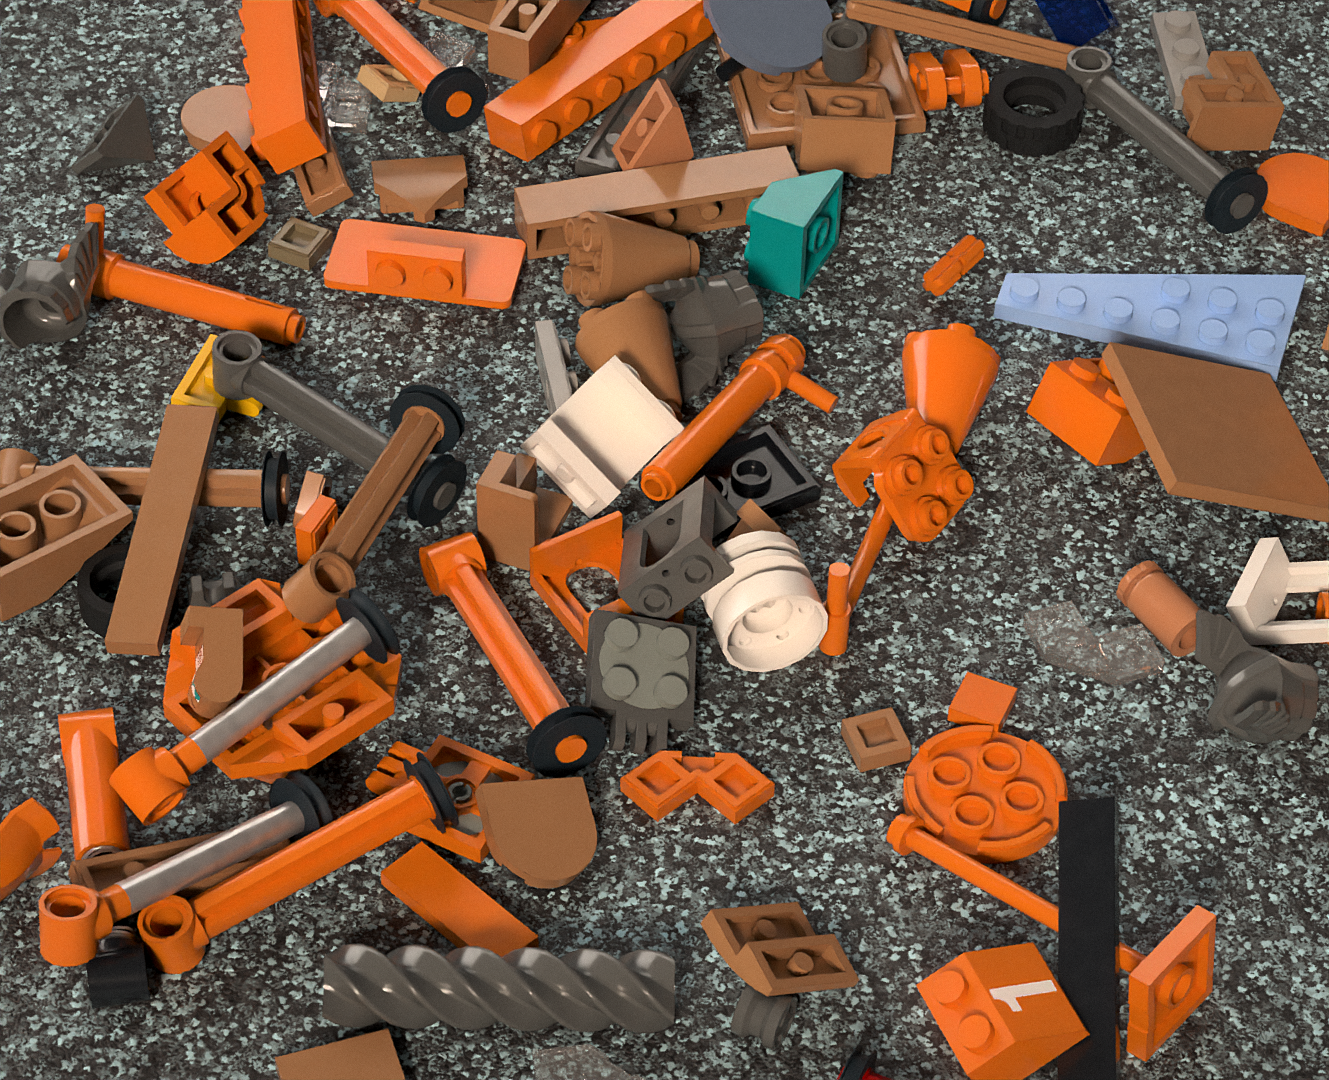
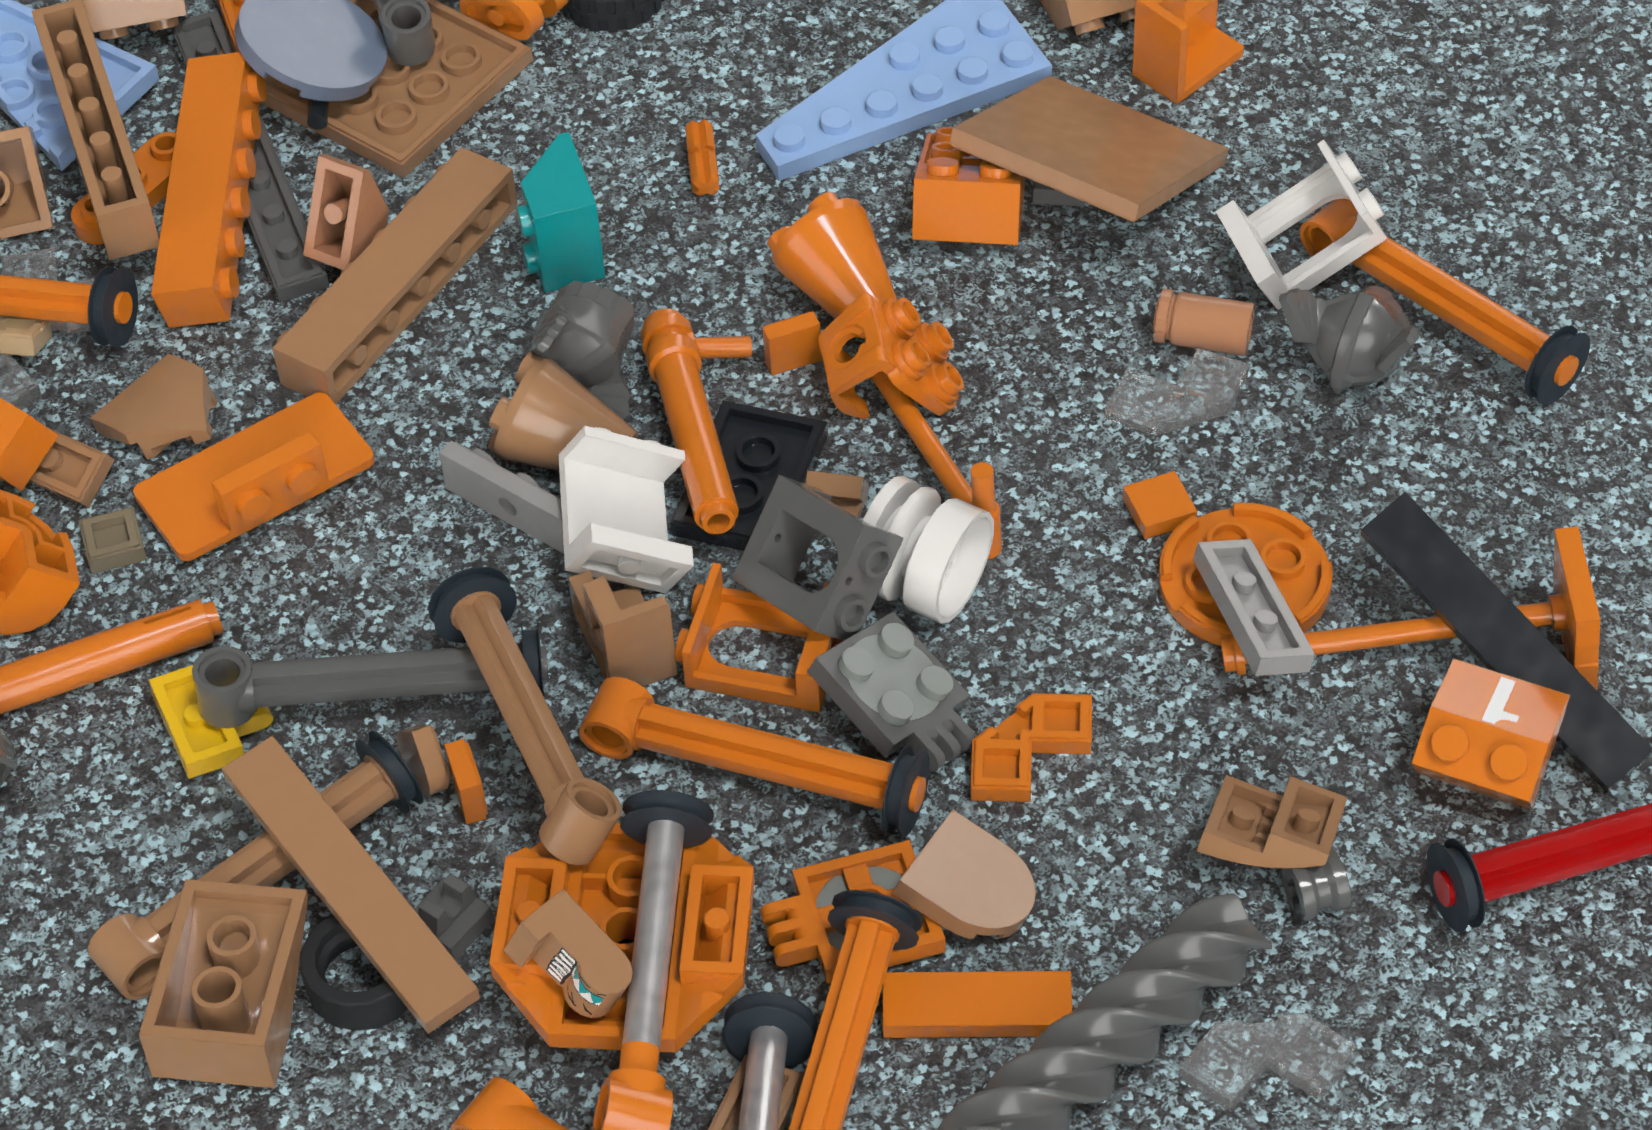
camera: 40 degrees left, 5 degrees up
(620, 256) = (434, 348): medium nougat cone -> none
(843, 130) = (484, 99): medium nougat slope -> none
(852, 415) = (791, 343): none -> orange tile
(875, 739) = (1117, 597): medium nougat tile -> none
(938, 805) = (1253, 607): none -> light grey plate

